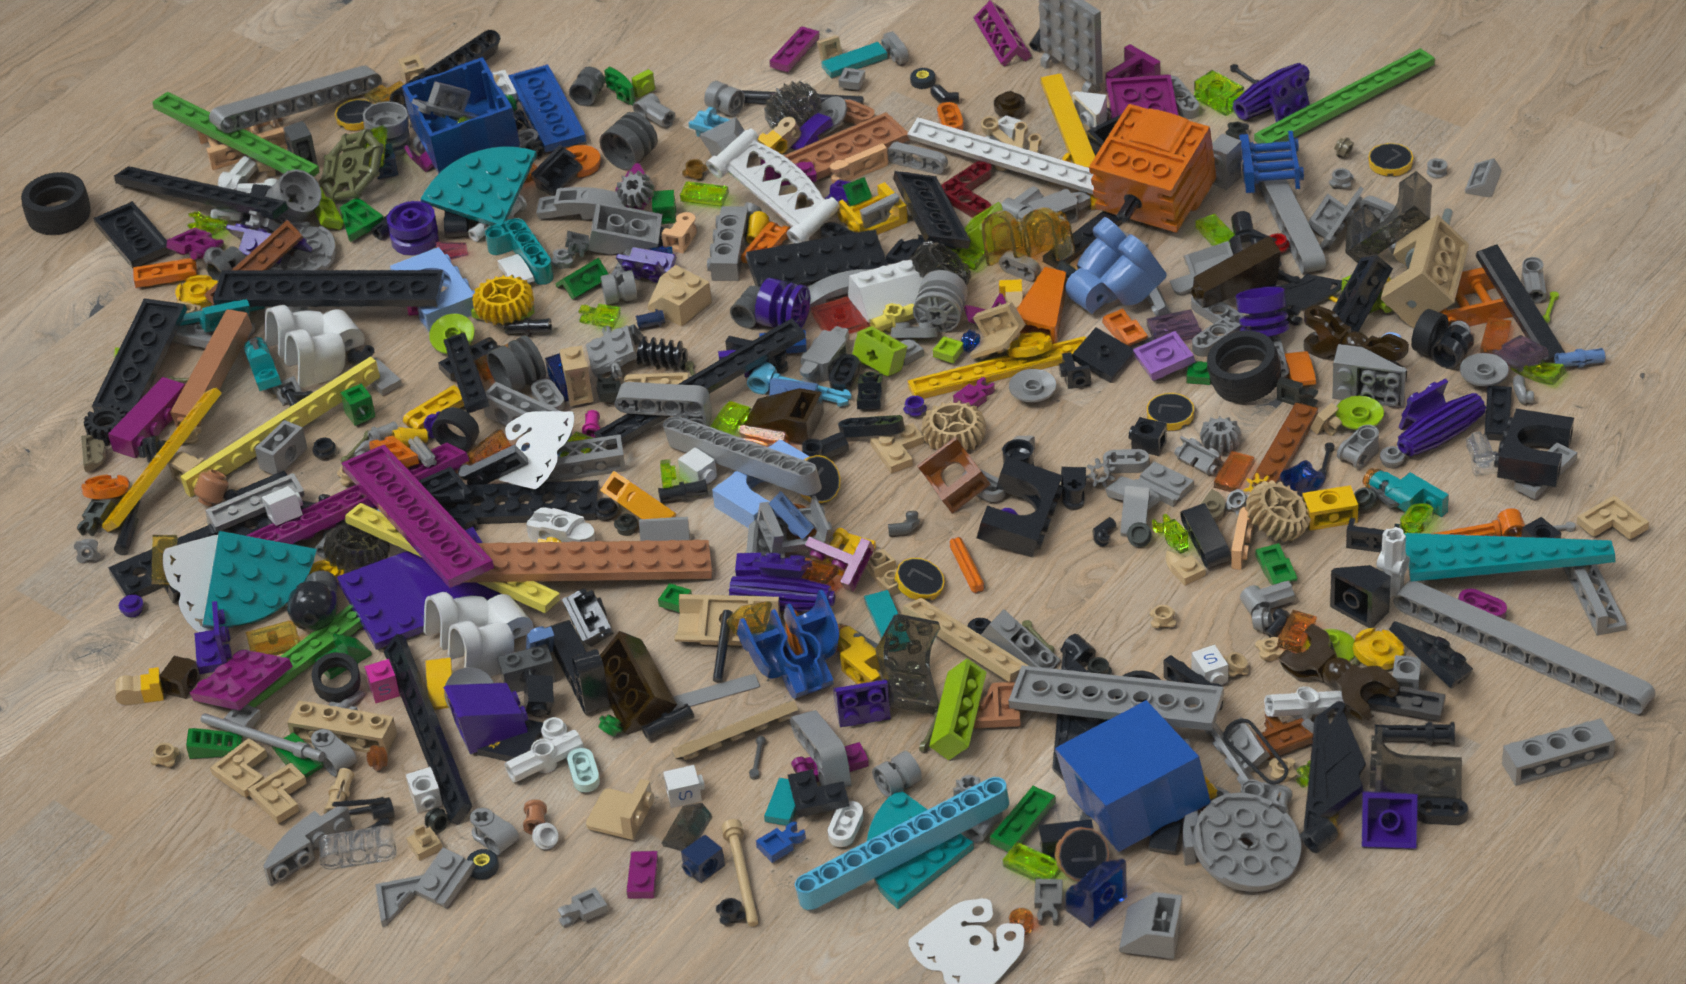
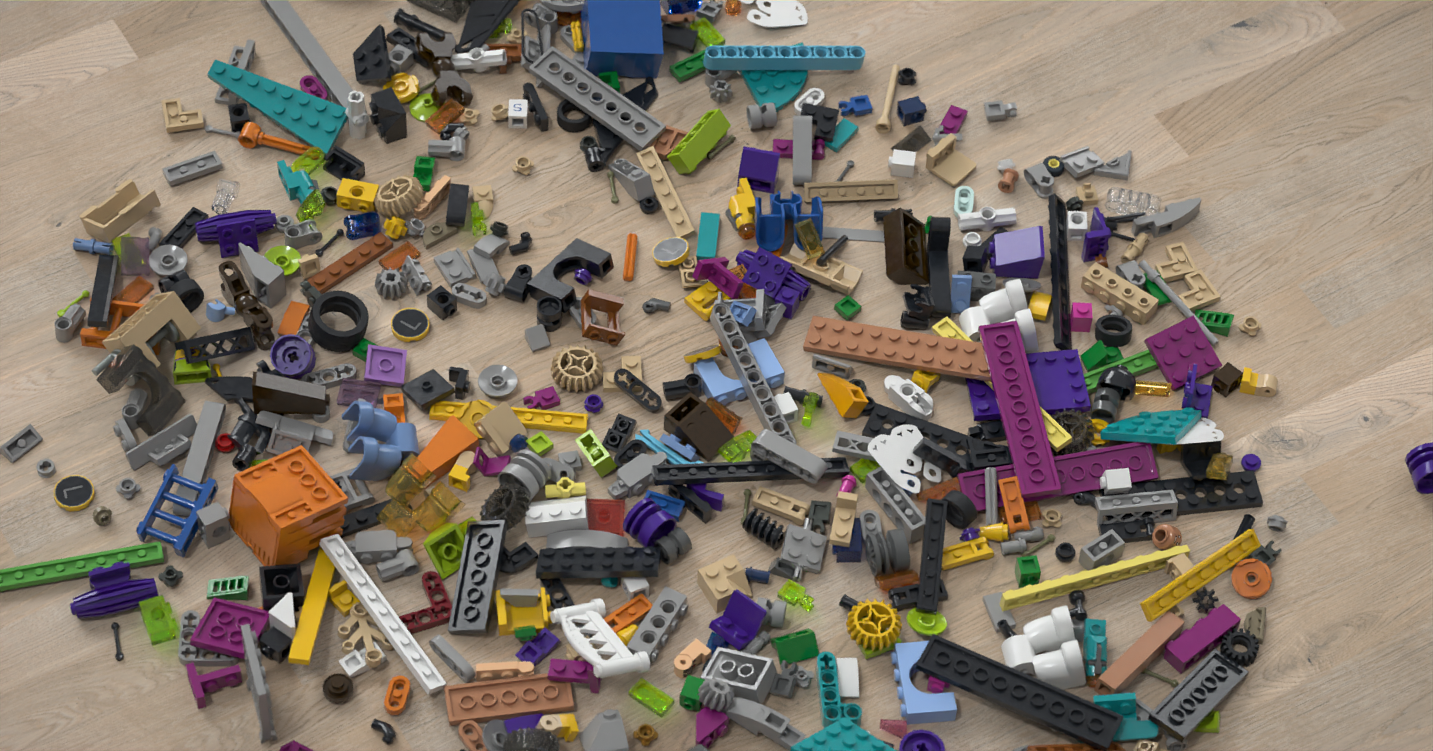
camera: 165 degrees left, 10 degrees up
(389, 764) = (1097, 239): none -> dark purple bracket
(649, 843) = (937, 136): none -> light grey piece
(905, 663) = (718, 177): clear smoke bracket -> none
(1365, 459) = (311, 206): none -> clear neon green slope
(1529, 465) = (183, 198): black arch -> none
(1590, 366) = (125, 205): none -> tan piece

